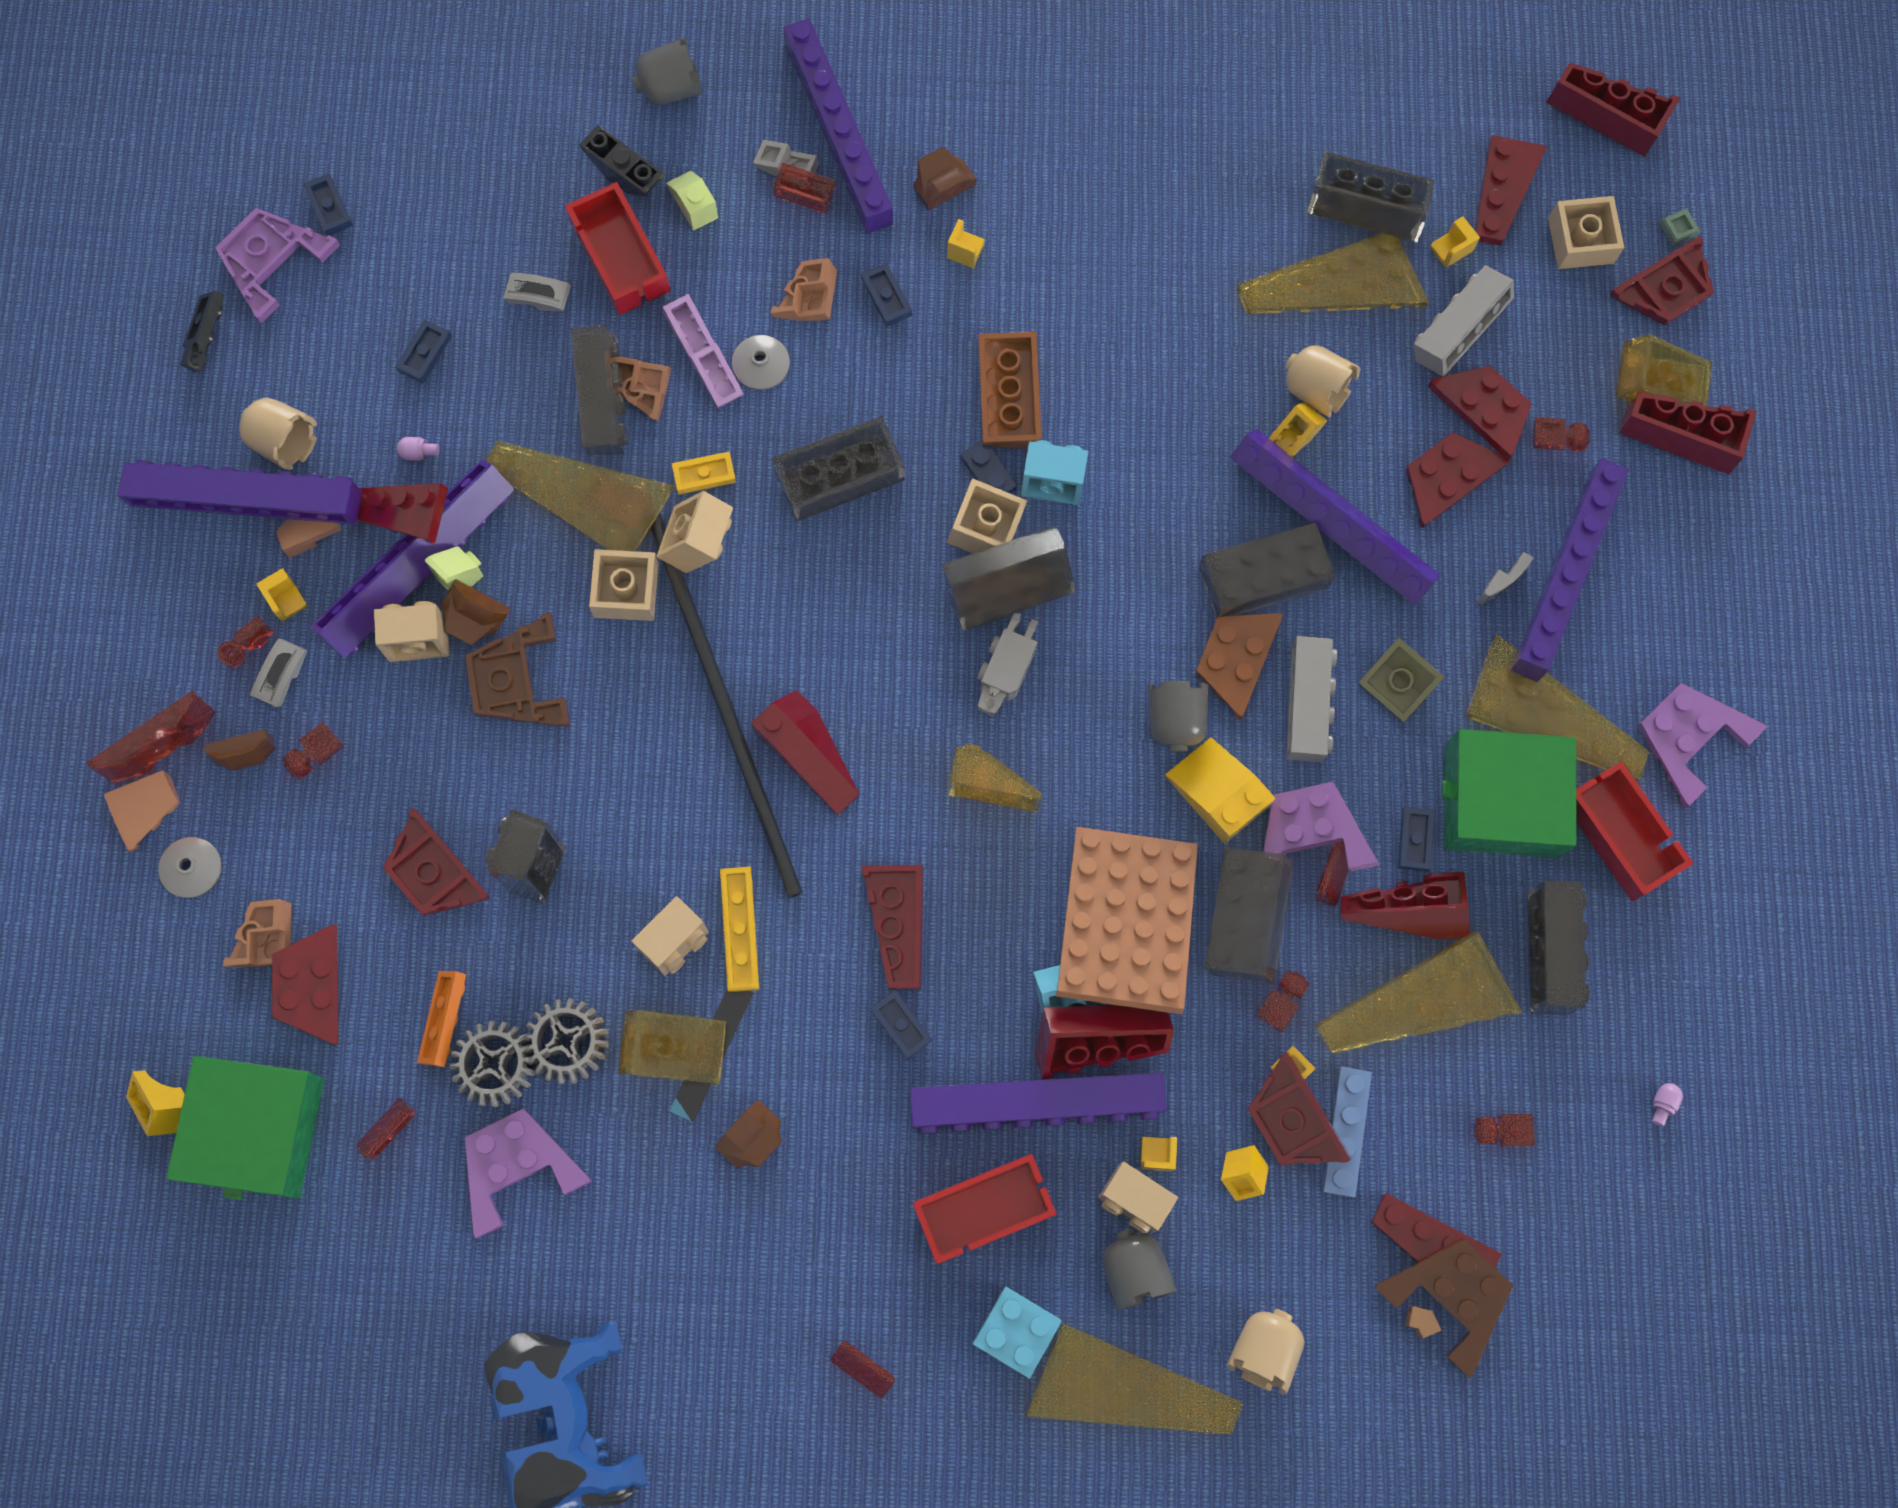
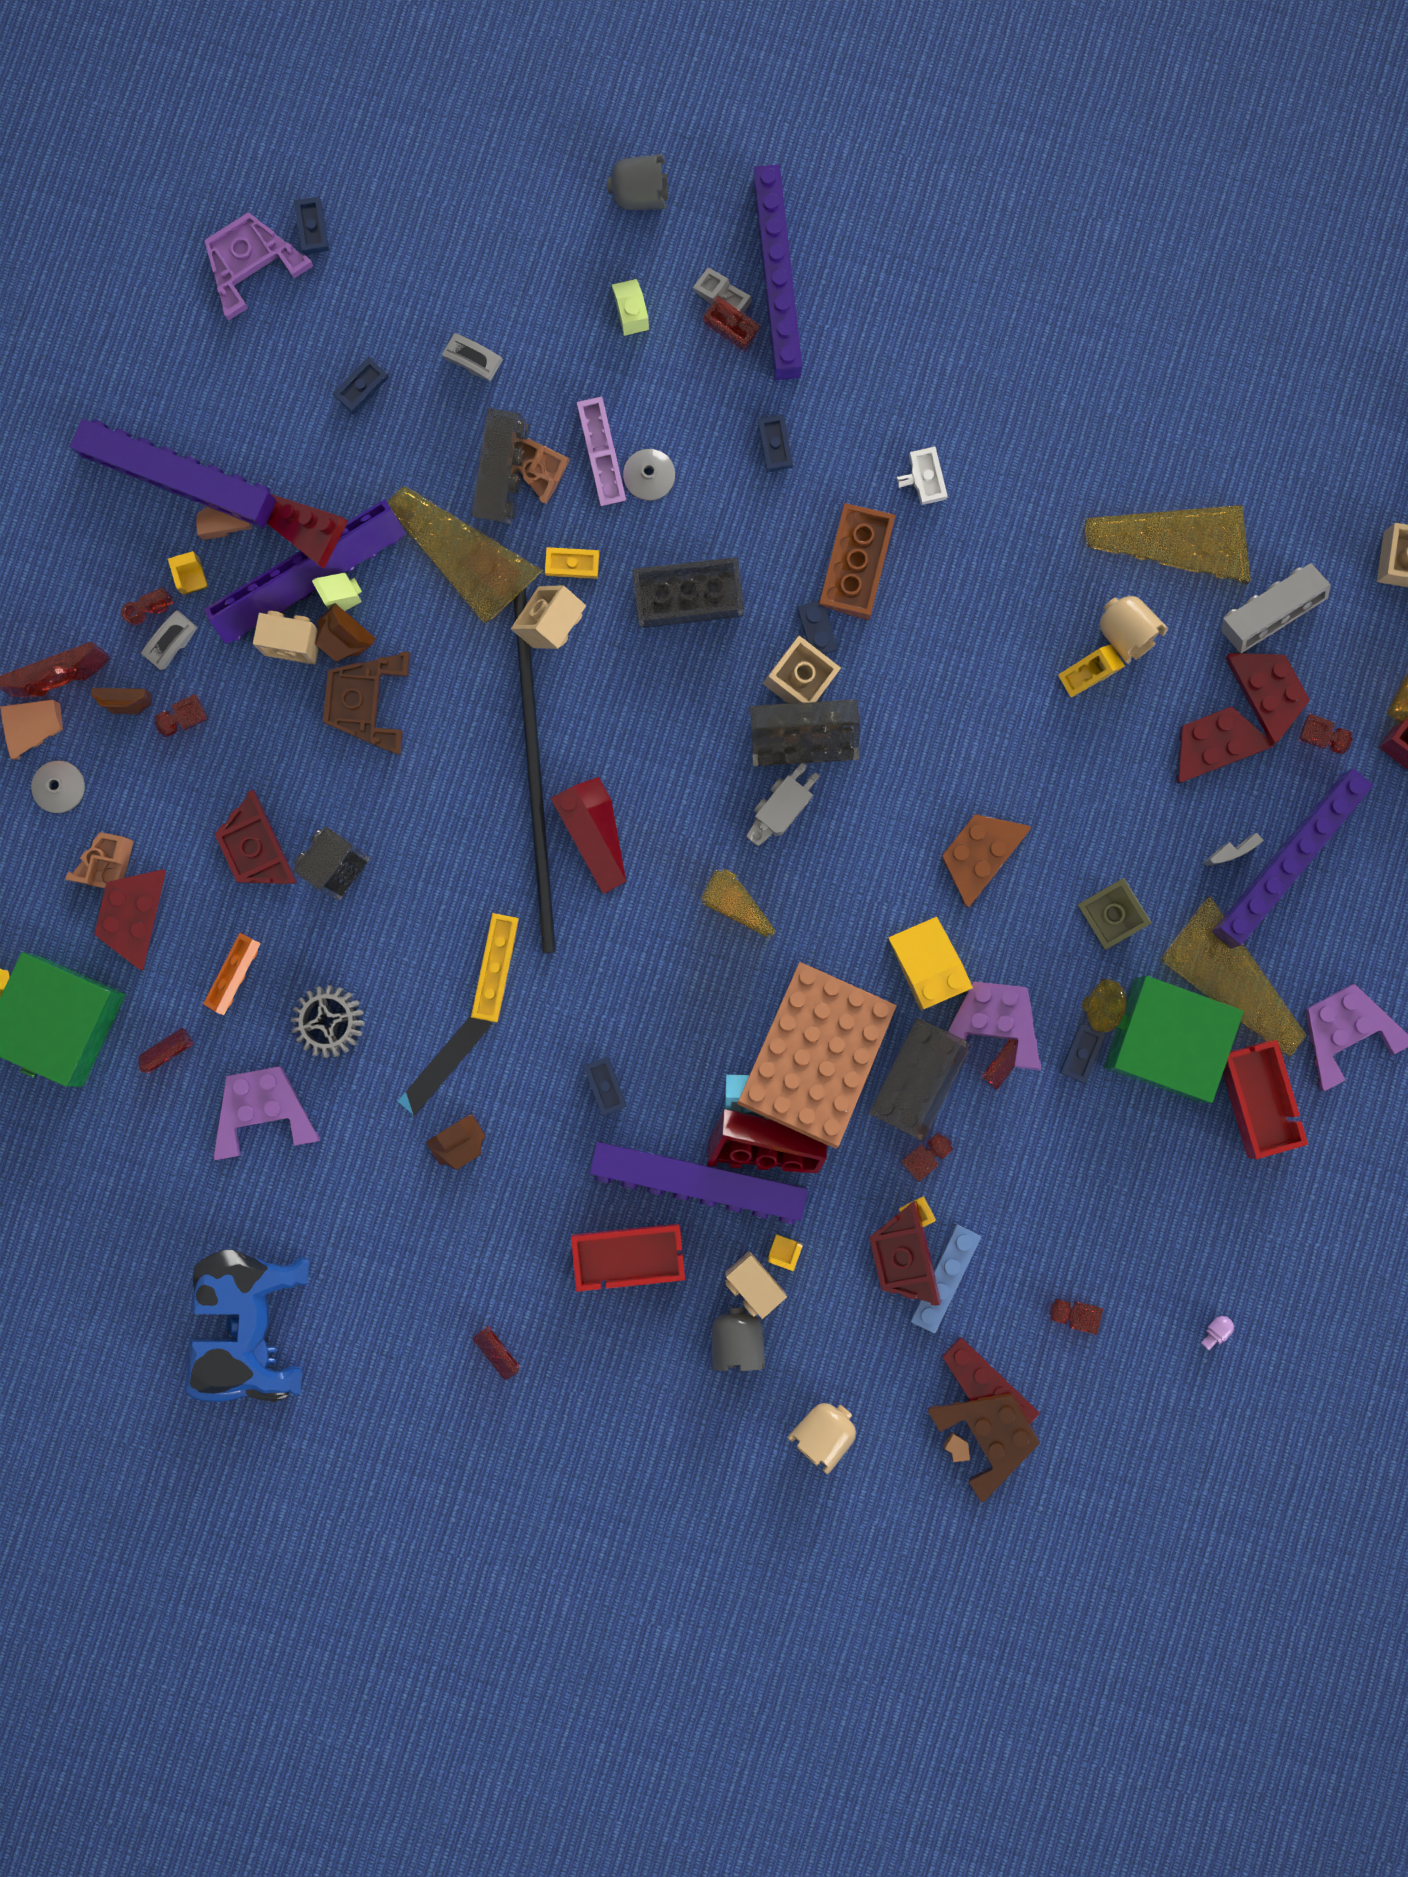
camera: 15 degrees right, 10 degrees up
(200, 330) = (174, 314): black hinge -> none
(277, 432) = (217, 426): tan cylinder -> none
(416, 448) = (333, 472): lavender cylinder -> none
(482, 1073) = (258, 1012): light grey gear -> none
(617, 248) = (551, 337): red piece -> none
(620, 163) = (575, 257): black slope -> none
(624, 585) = (476, 645): tan brick -> none
(671, 937) = (435, 961): tan brick -> none
(672, 1047) = (412, 1051): clear yellow slope -> none
(809, 293) = (708, 422): nougat slope -> none
(898, 921) = (628, 995): dark red wing -> none
(941, 177) = (855, 346): reddish brown slope -> none
(964, 246) = (856, 416): yellow panel -> none
(1017, 1332) = (626, 1361): medium azure brick -> none
(1054, 472) = (872, 648): medium azure brick -> none
(1055, 286) = (925, 476): none -> white plate
(1111, 1386) = (689, 1423): clear yellow wing -> none
(1177, 714) = (913, 892): dark grey cylinder -> none
(1245, 1173) = (850, 1288): yellow panel -> none
(1266, 571) = (1029, 786): clear smoke brick -> none
(1310, 699) = (1031, 908): light grey brick -> none
(1335, 516) = (1103, 754): dark purple brick -> none
(1370, 196) = (1230, 470): clear smoke brick -> none
(1424, 778) = (1105, 1005): none -> clear yellow dish
(1425, 908) = (1068, 1113): dark red wedge -> none
(1435, 995) = (1052, 1189): clear yellow wing -> none
(1456, 243) = (1292, 533): yellow panel -> none
(1505, 181) = (1358, 485): dark red wing -> none
(1557, 948) = (1169, 1181): clear smoke brick -> none

